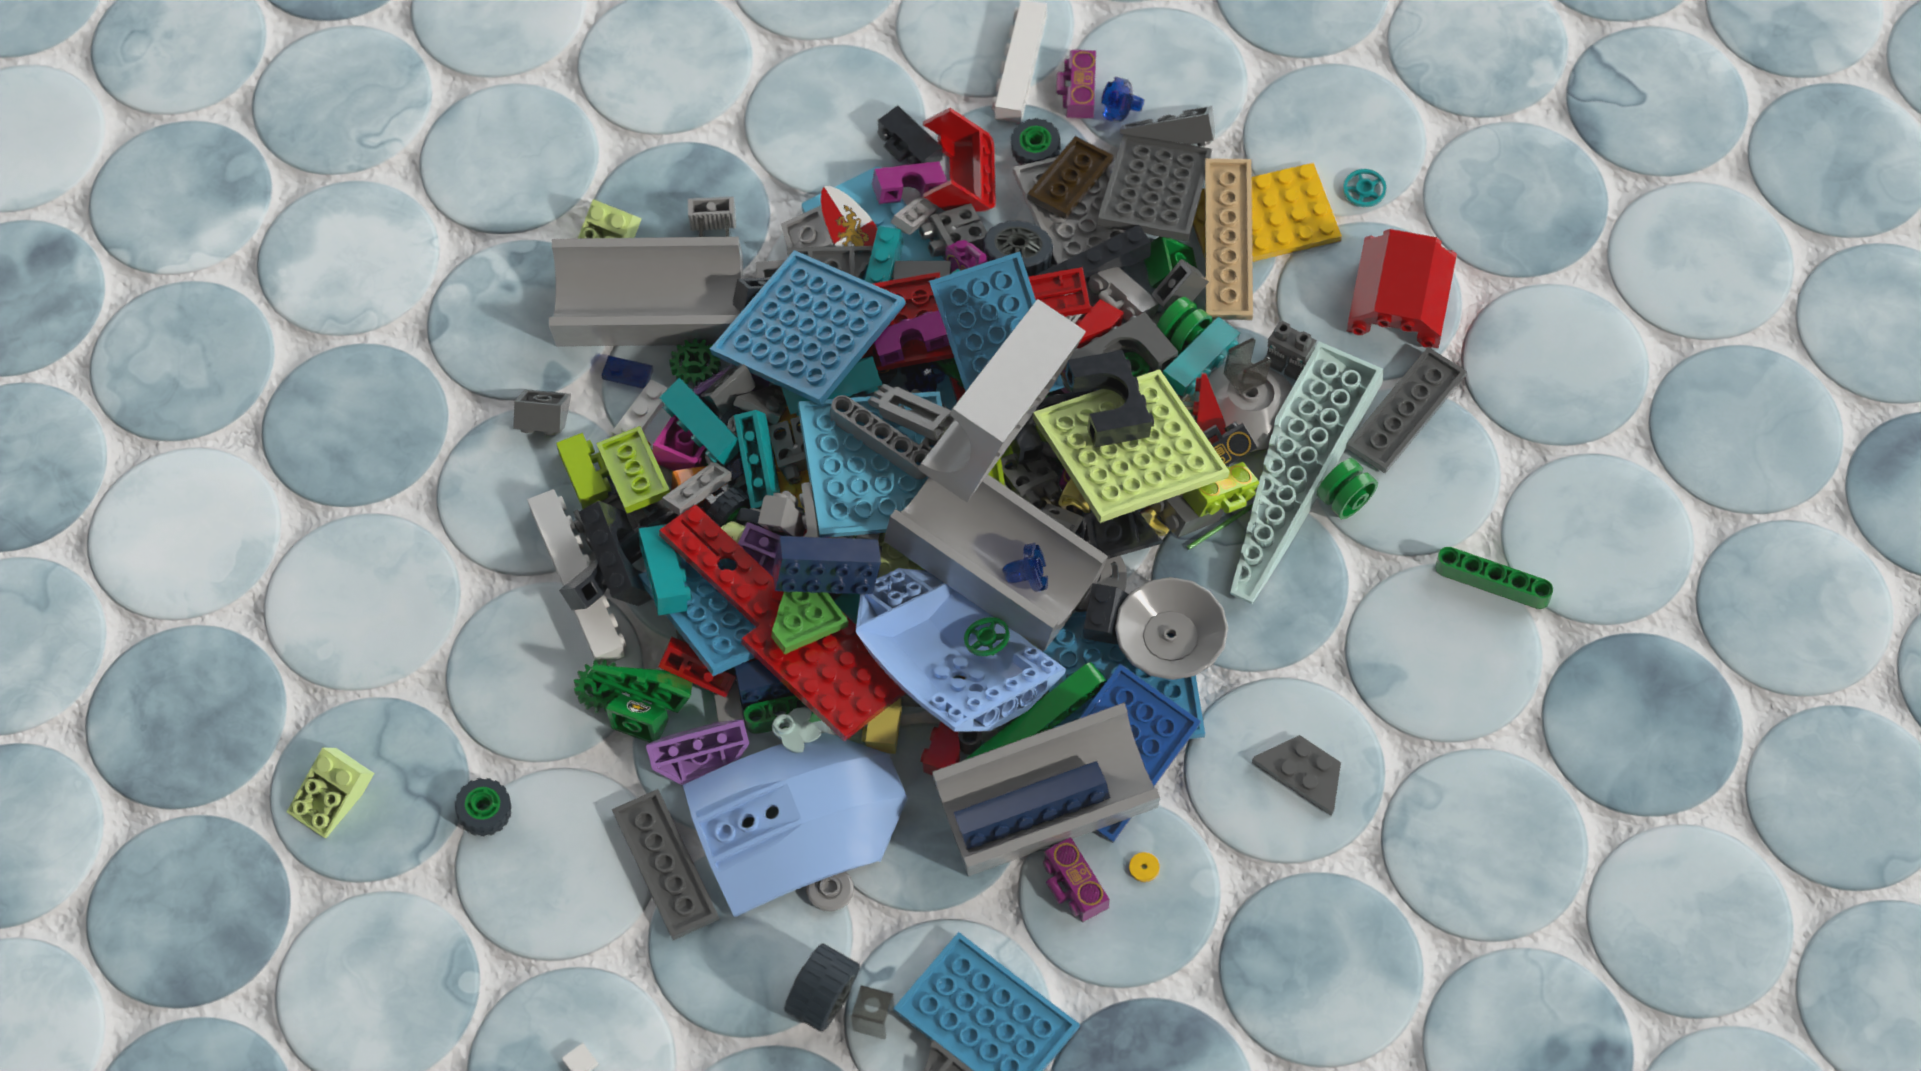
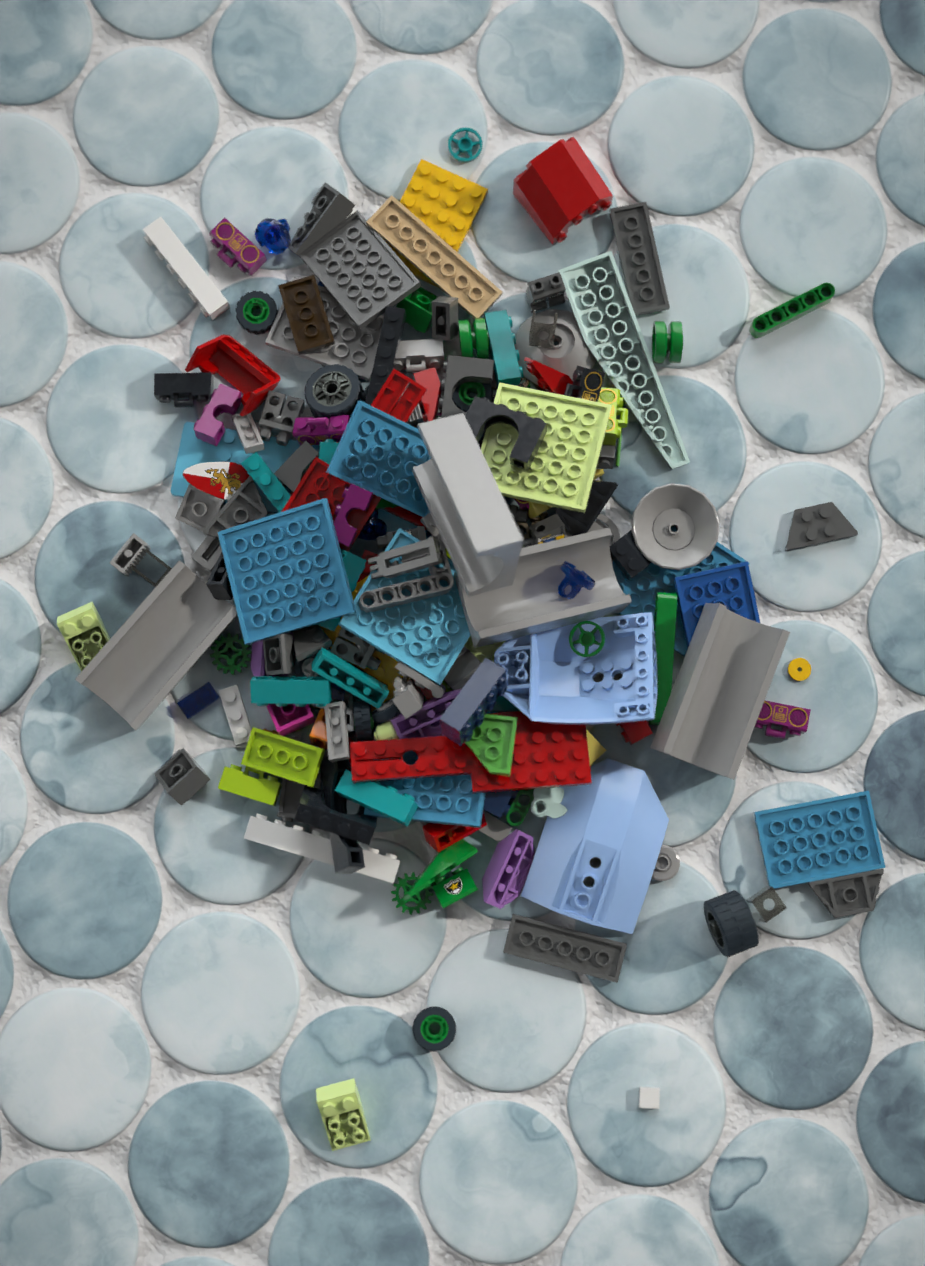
camera: 50 degrees left, 20 degrees up
(1032, 805) = (724, 707): dark blue brick -> none

